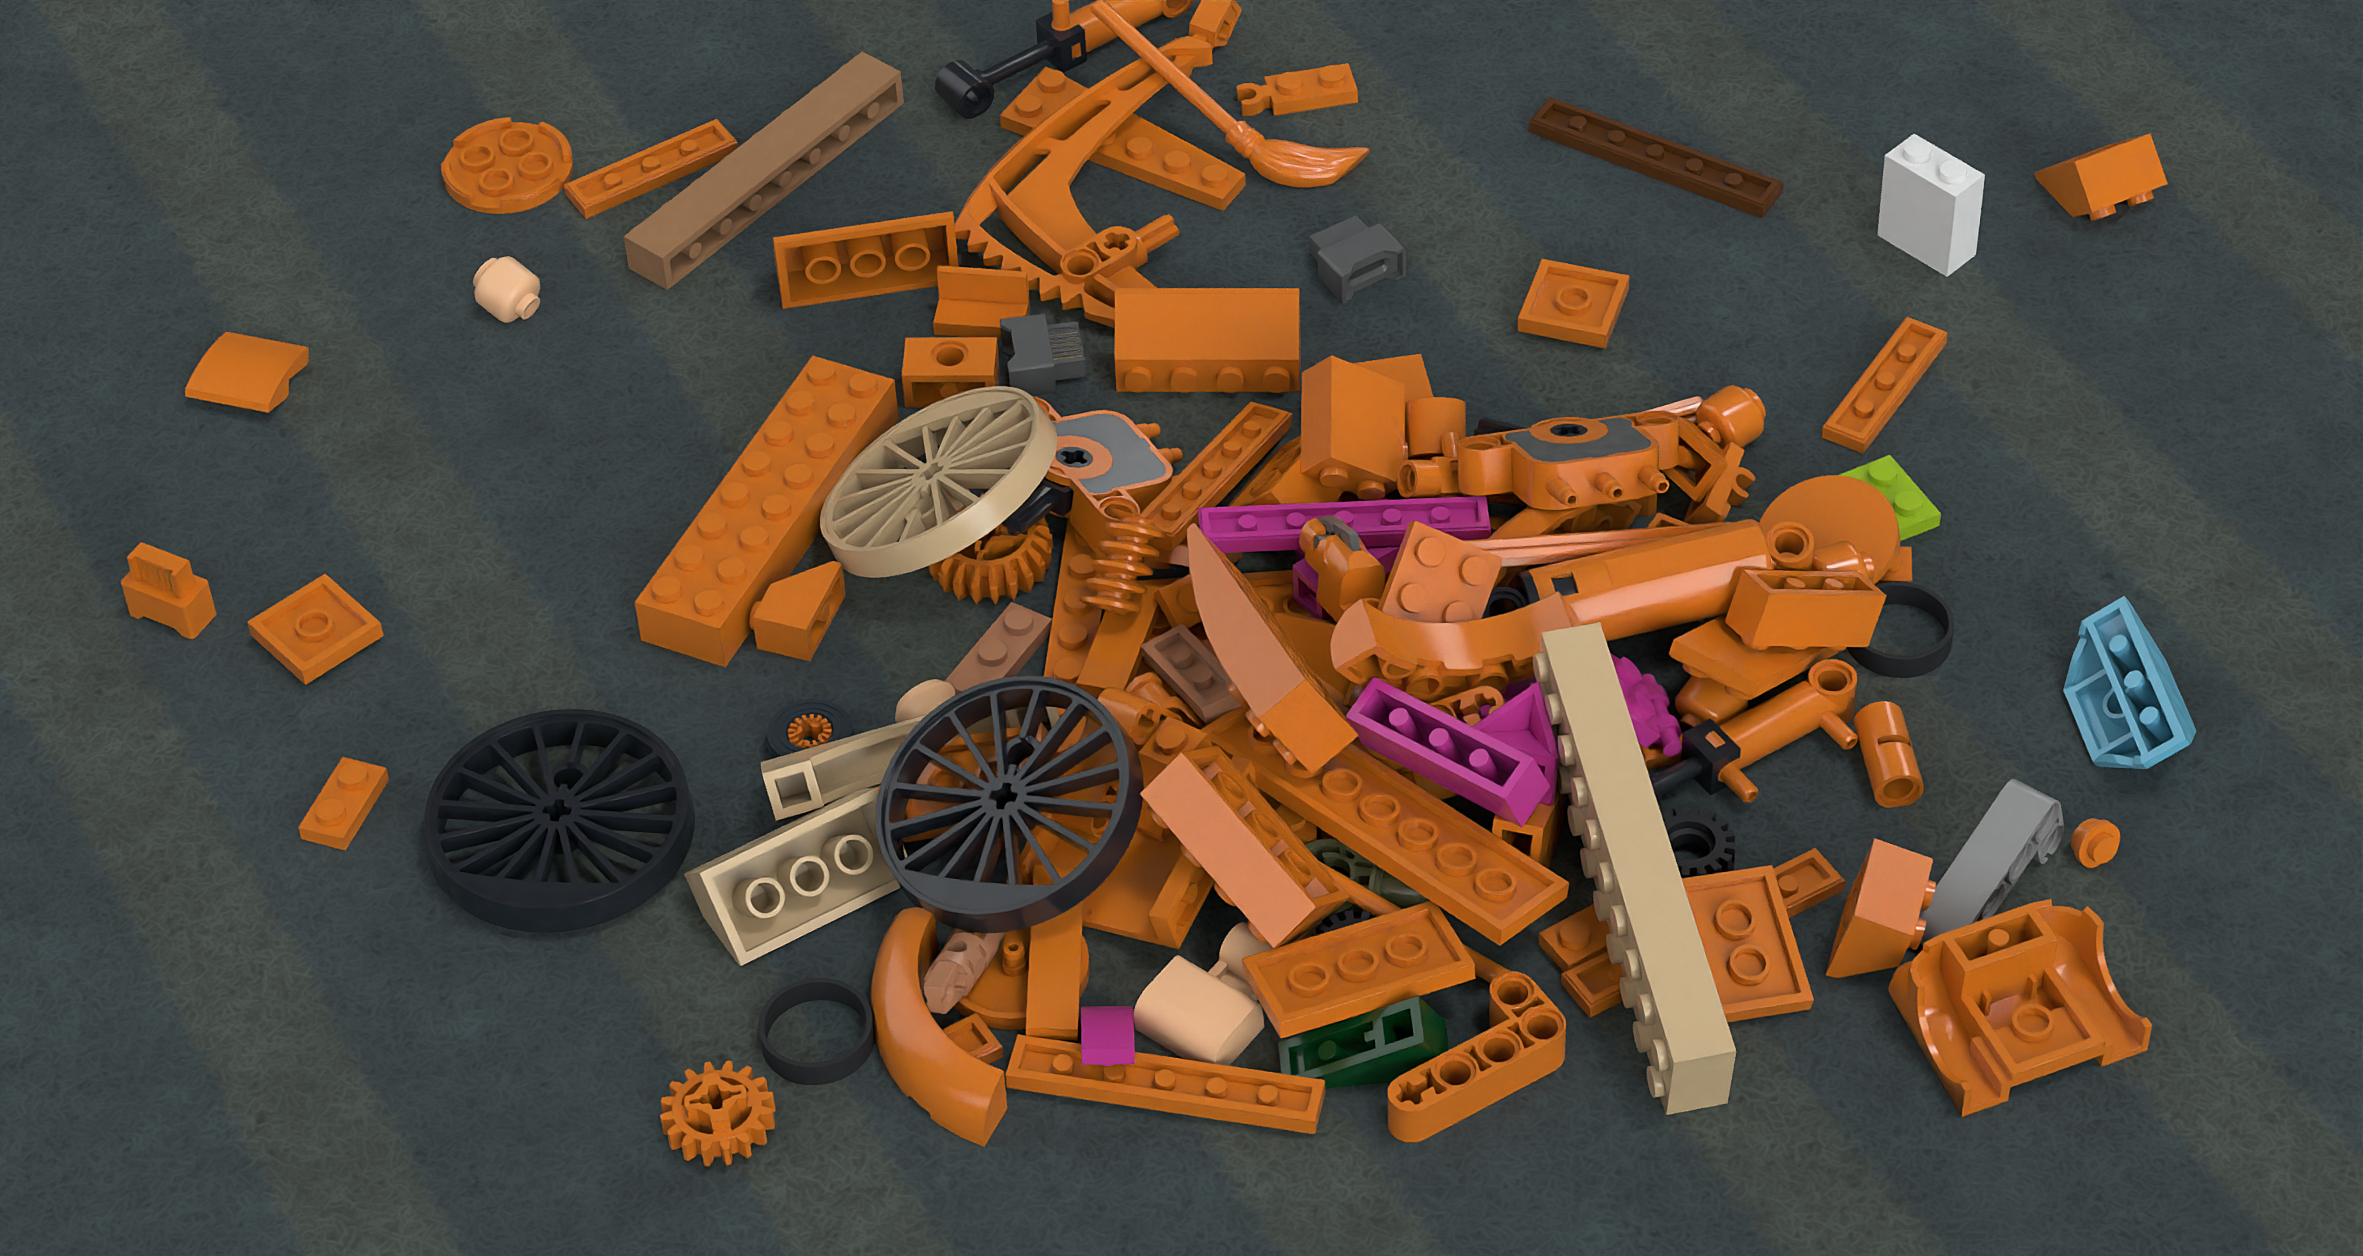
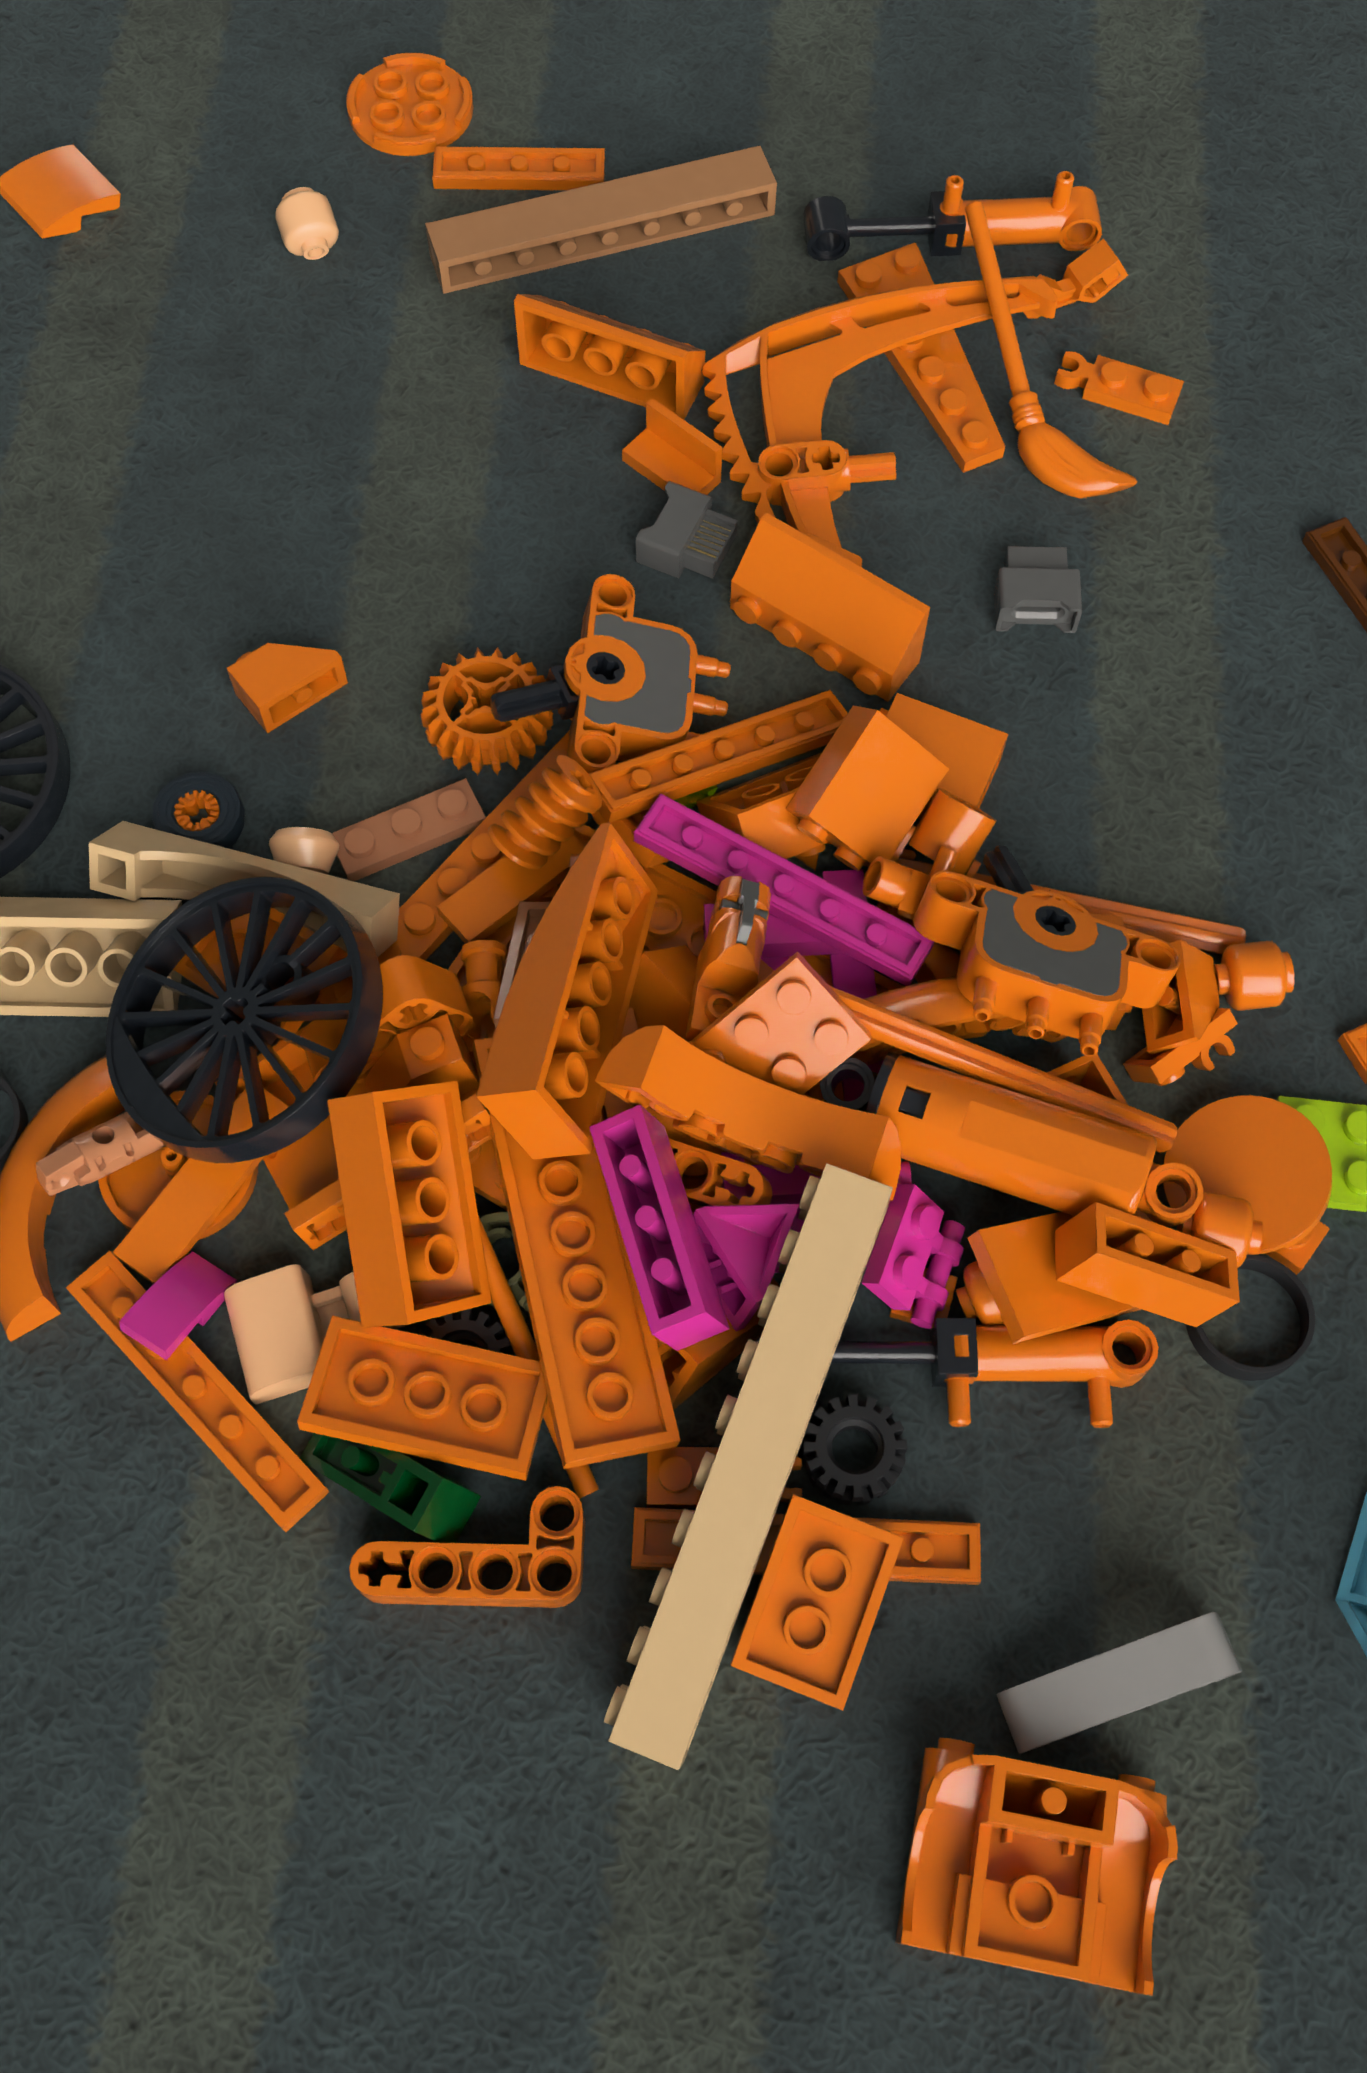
camera: 30 degrees right, 20 degrees up
(764, 511) = (338, 560): orange brick -> none
(947, 366) = (594, 509): orange brick -> none
(975, 1038) = (75, 1225): orange tile -> none
(979, 439) = (410, 633): tan piece -> none
(1573, 303) = (1202, 755): orange plate -> none
(1882, 911) = (973, 1668): orange slope -> none
(1888, 754) = (1129, 1463): orange pin -> none
(2095, 842) = (1263, 1710): orange plate -> none

